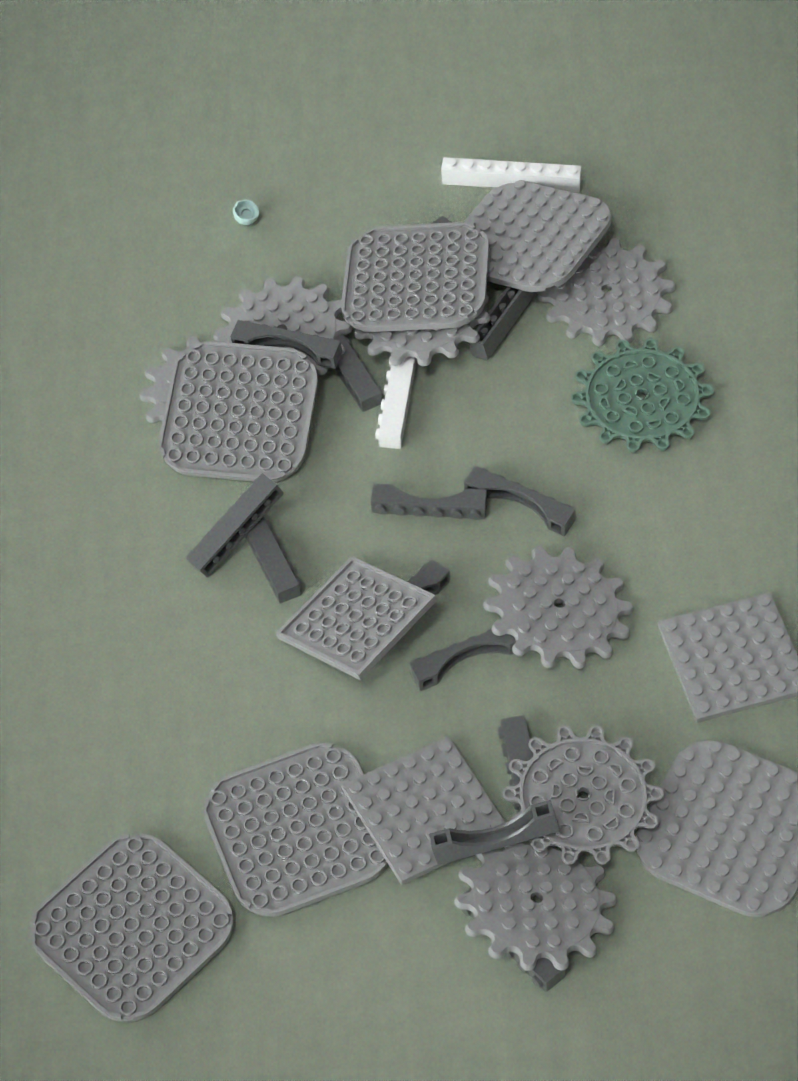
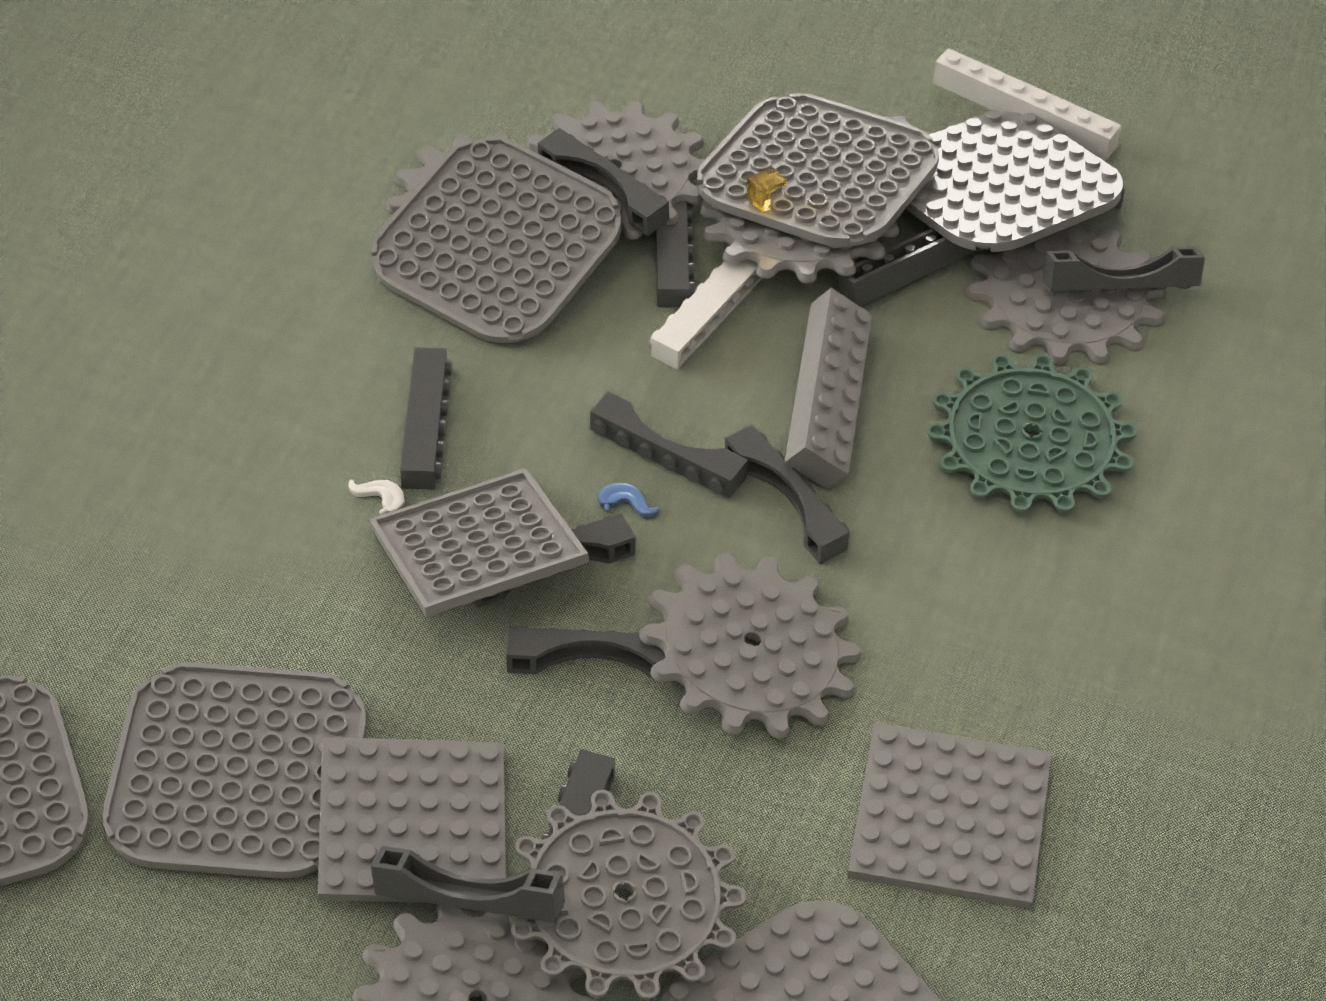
camera: 20 degrees right, 5 degrees down
(234, 525) = (398, 366): dark grey brick -> none
(245, 212) = (662, 18): light aqua hair -> none
(275, 610) = (389, 492): none -> white piece
(395, 306) = (761, 185): none -> clear yellow panel
(416, 546) = (621, 493): none -> medium blue piece
(507, 421) = (828, 389): none -> light grey brick
(667, 250) = (1174, 268): none -> dark grey arch

